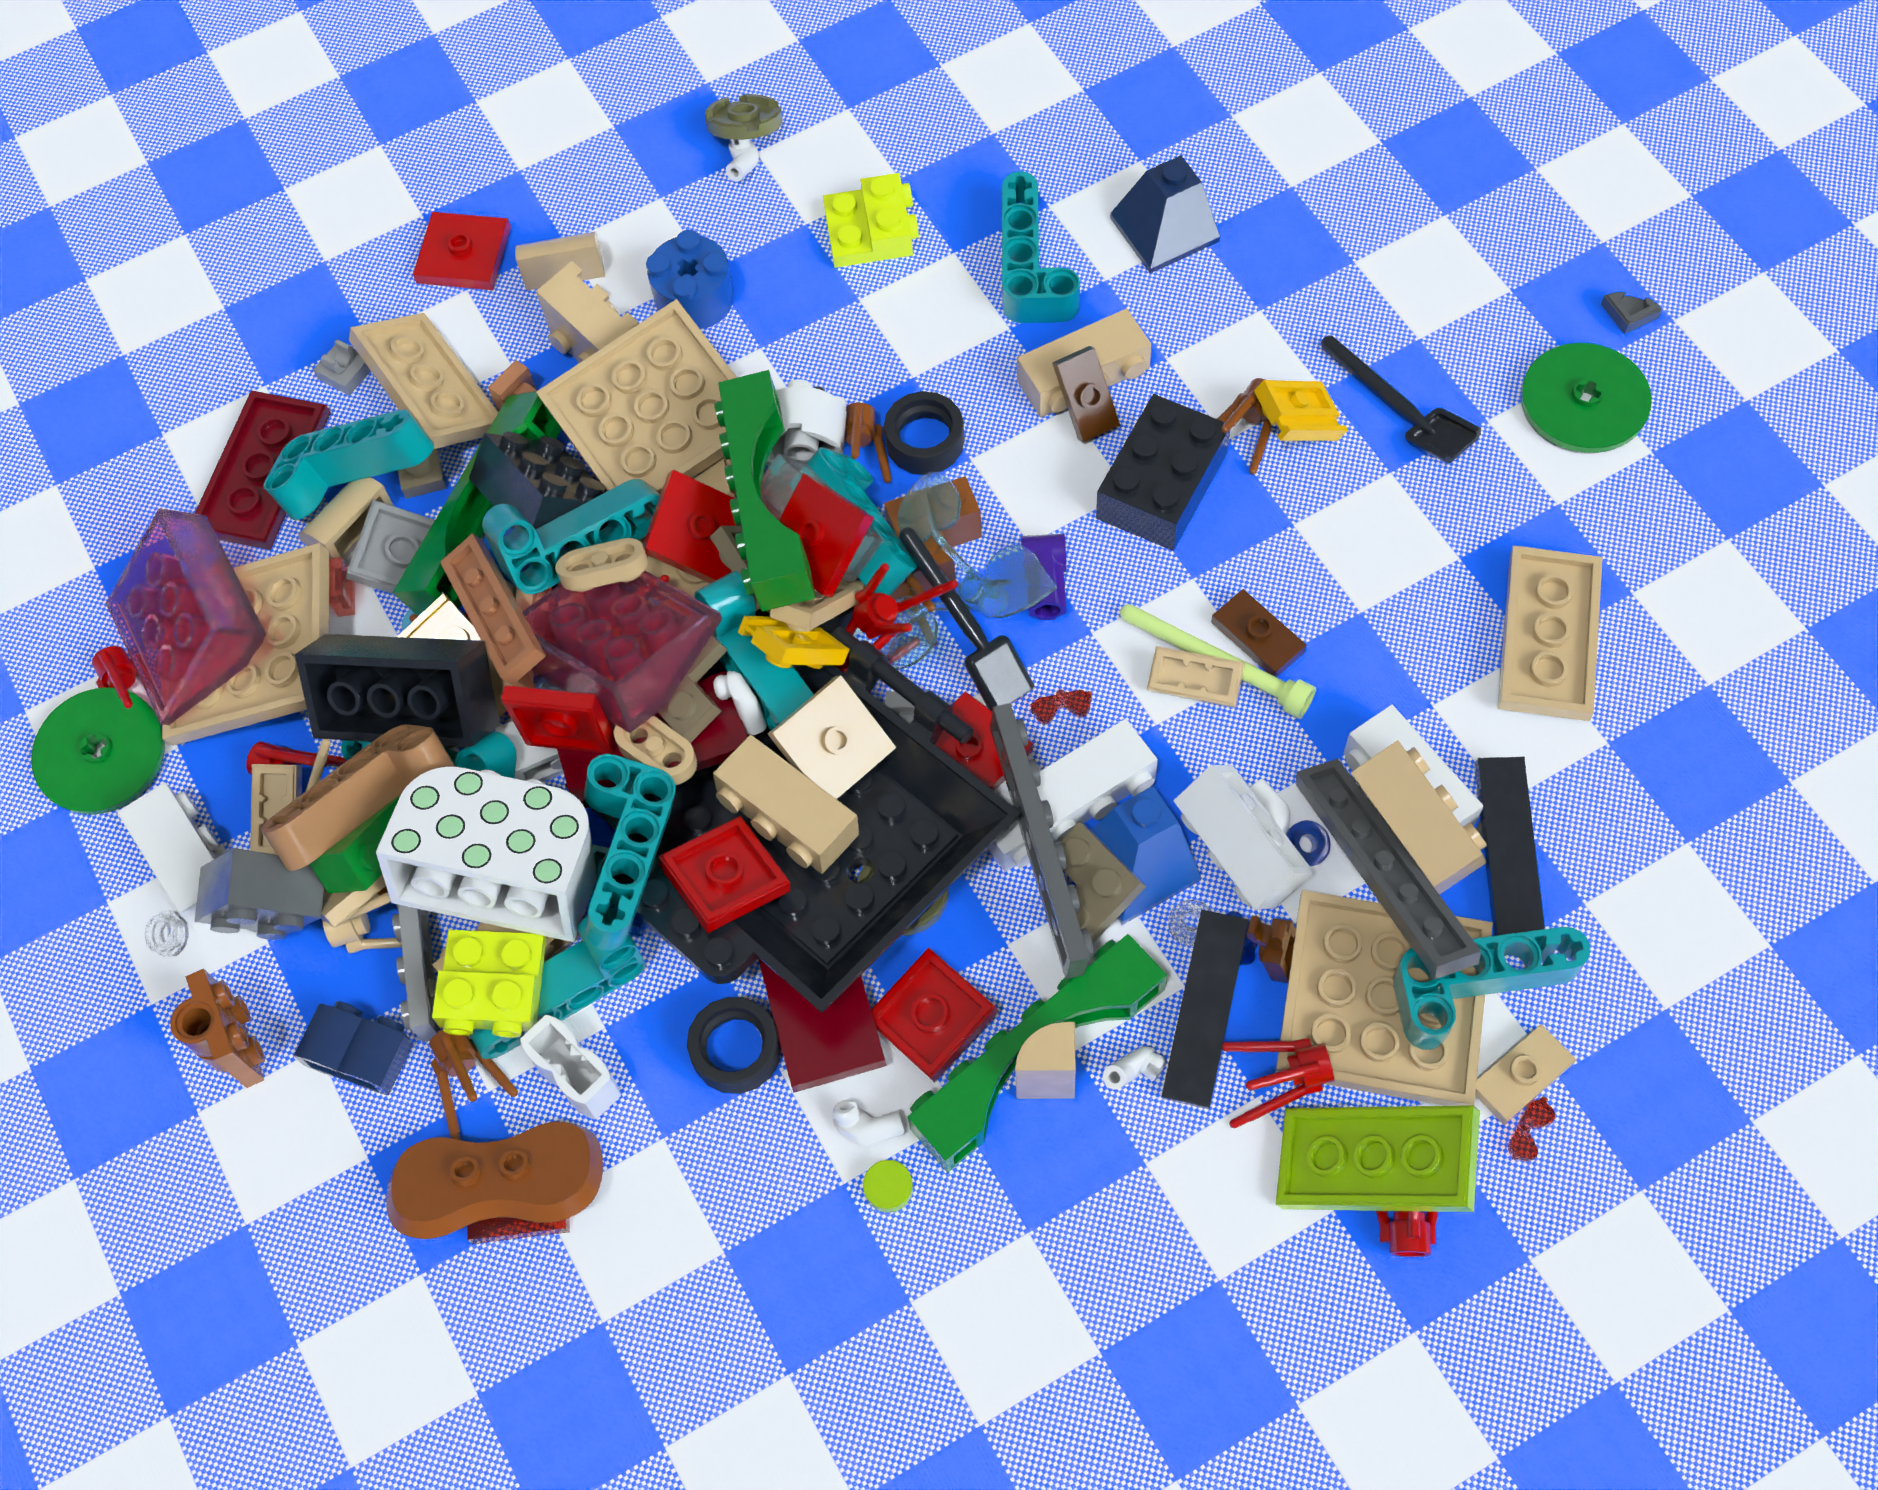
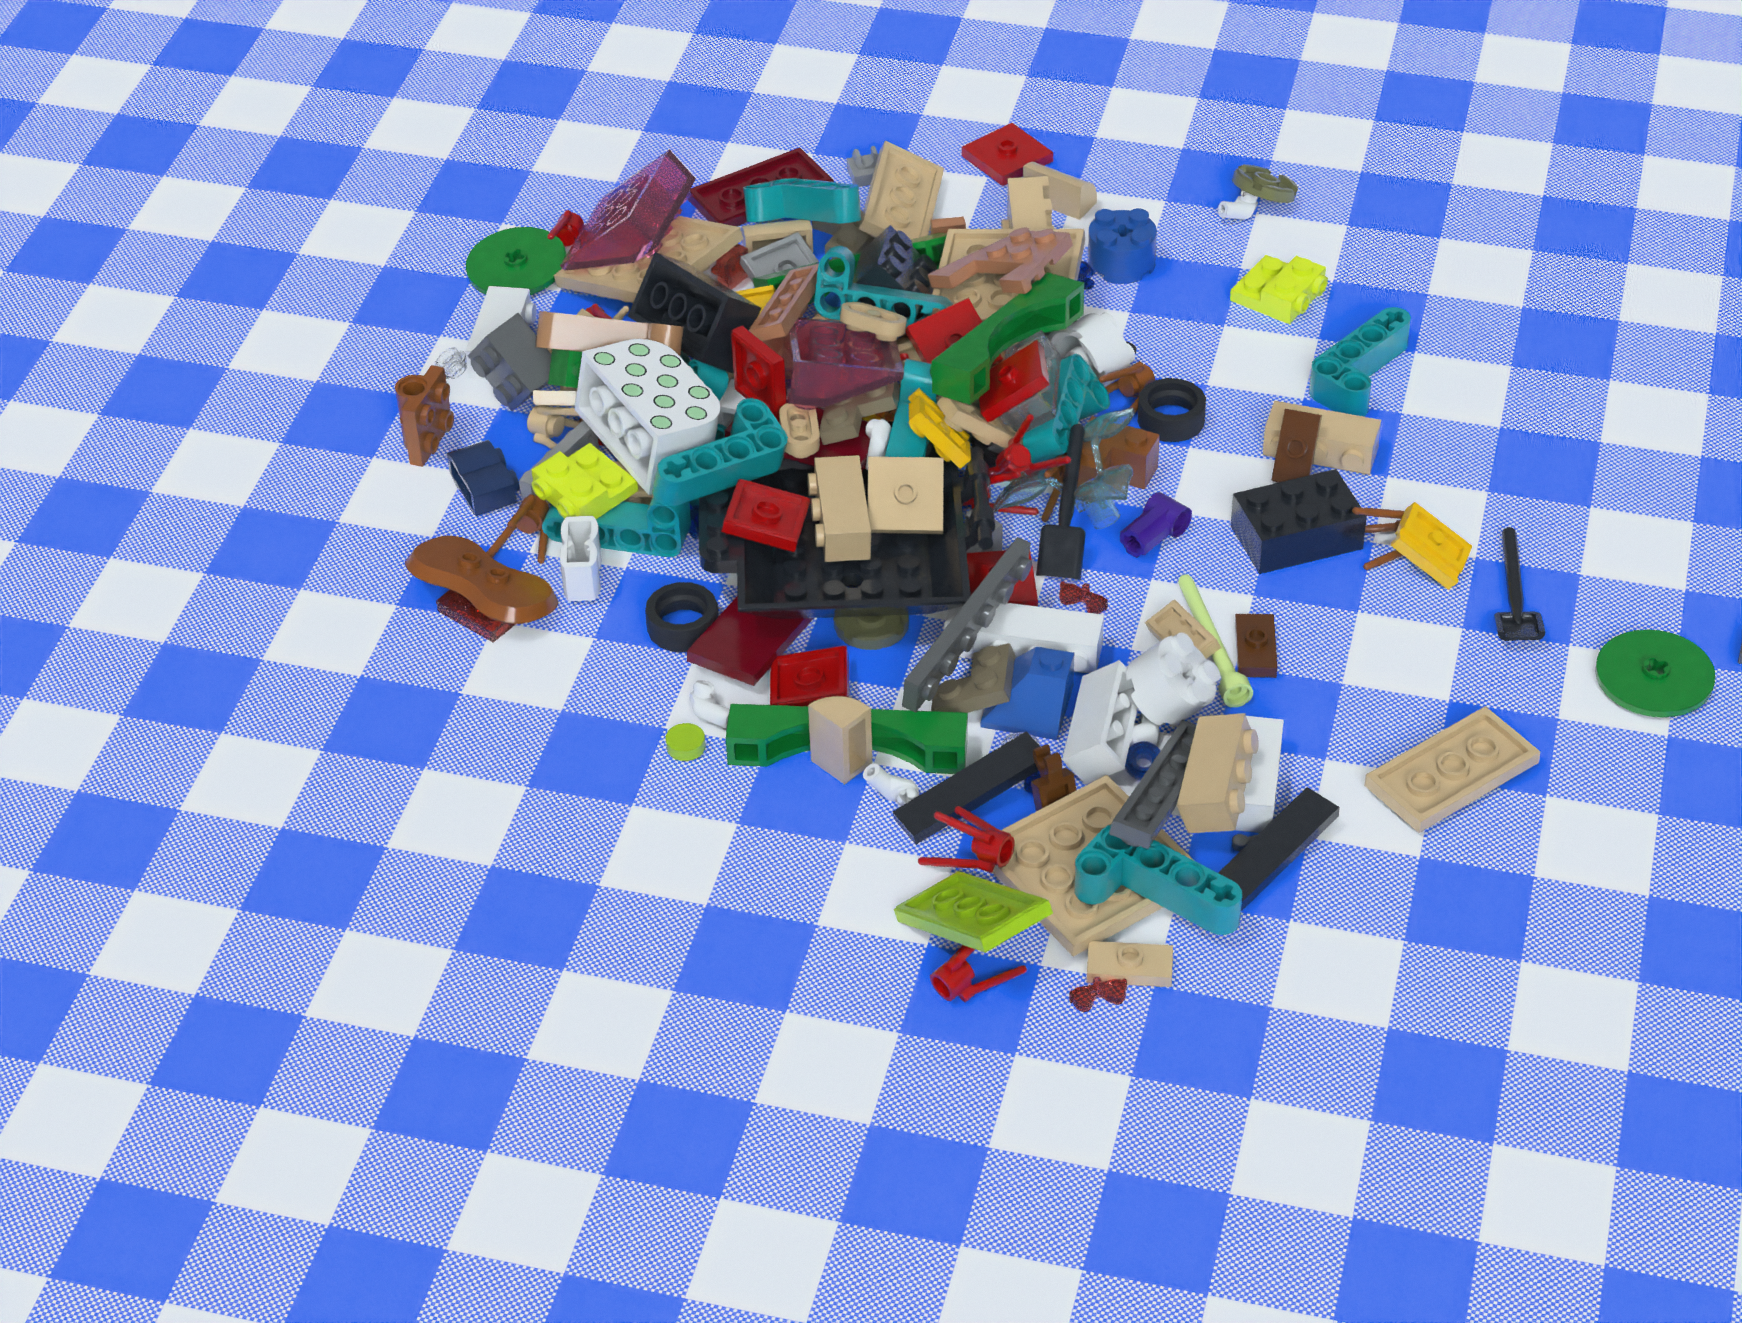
camera: 40 degrees right, 20 degrees down
(654, 379) = (1018, 256): none -> nougat wing
(1166, 215) = (1483, 398): dark blue slope -> none
(1265, 744) = (1172, 680): none -> white brick

